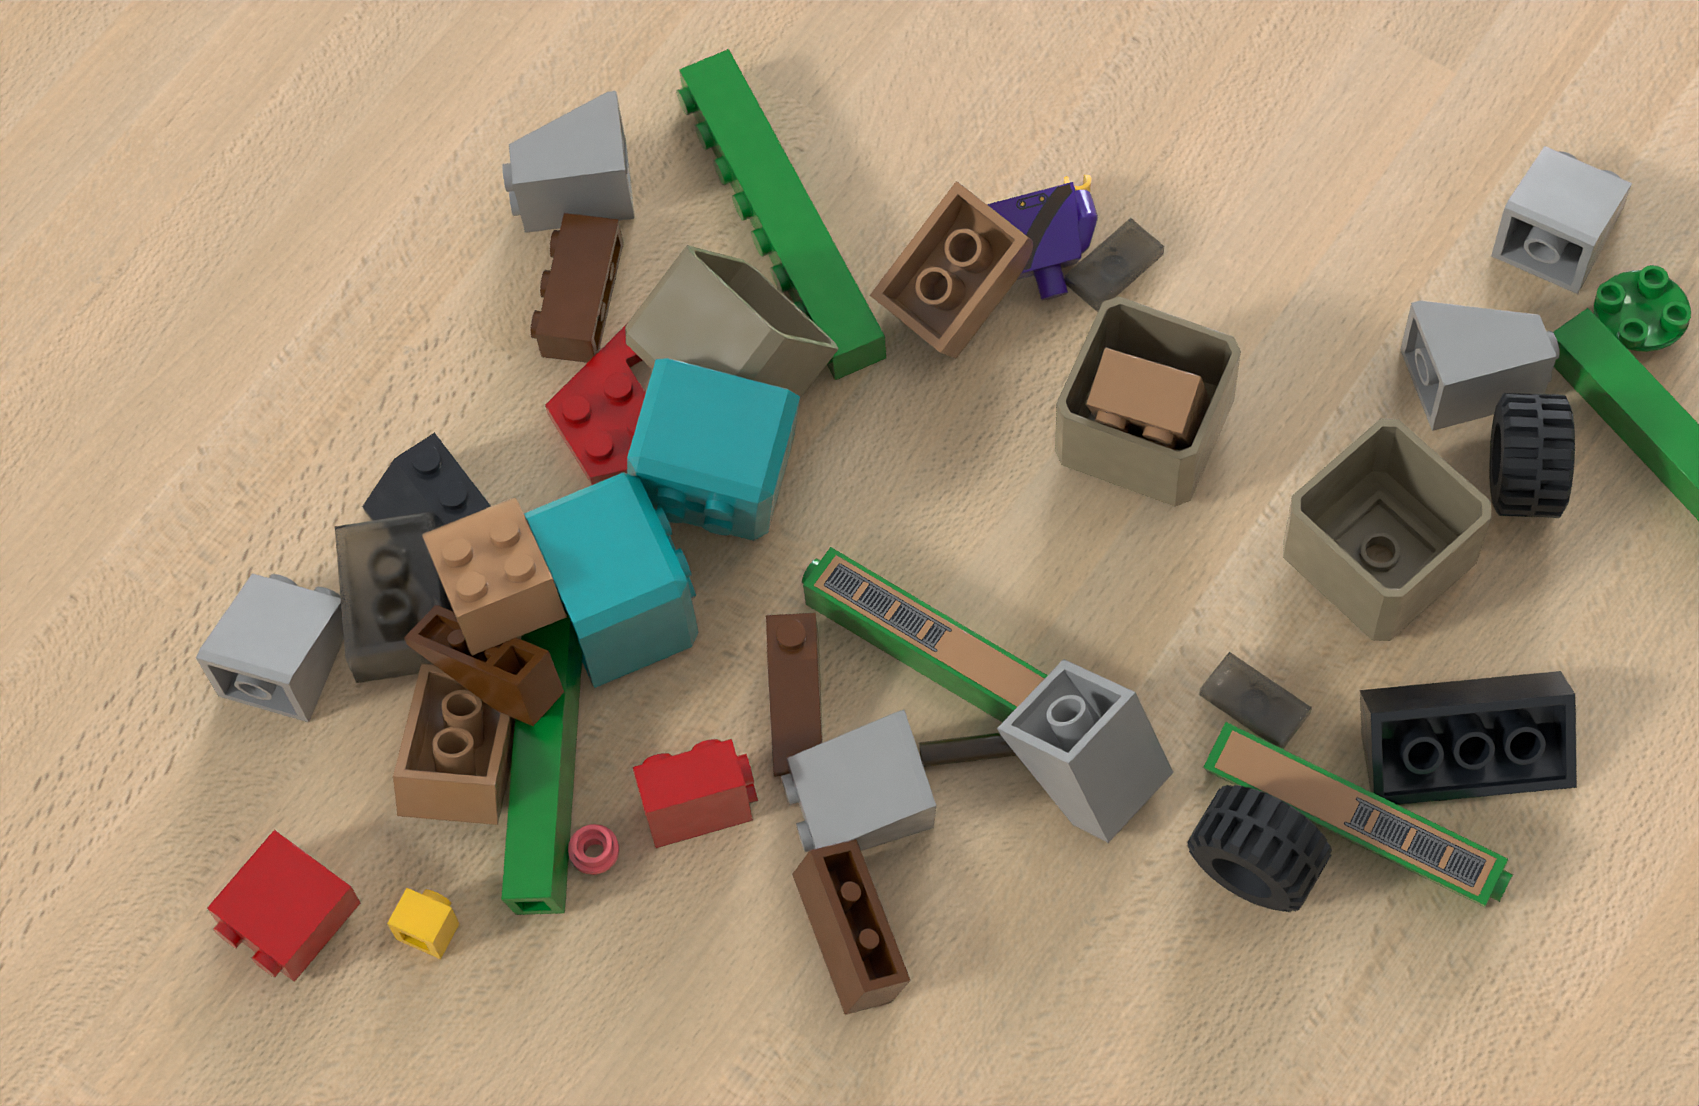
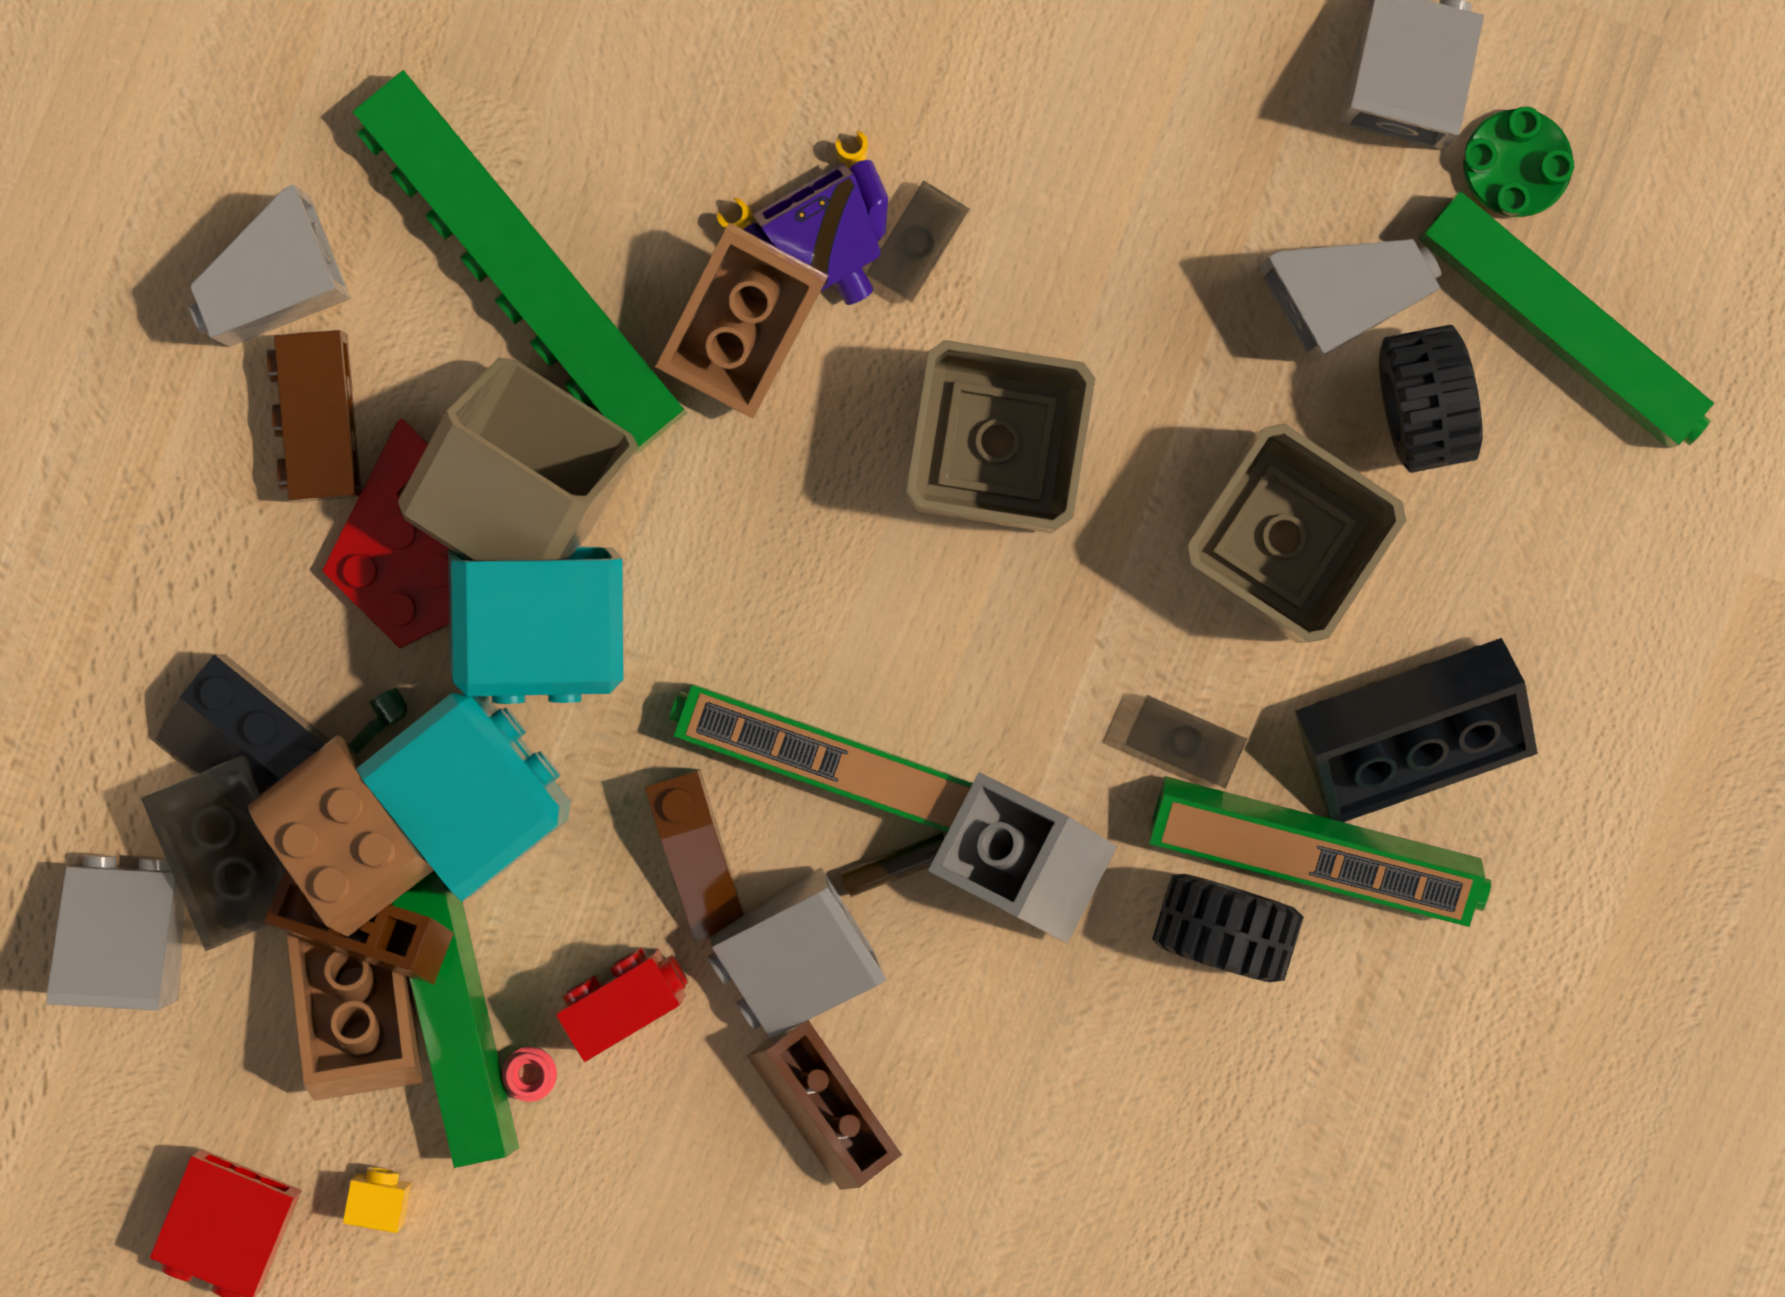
camera: 20 degrees left, 25 degrees up
(1148, 399) = (1004, 452): medium nougat brick -> none

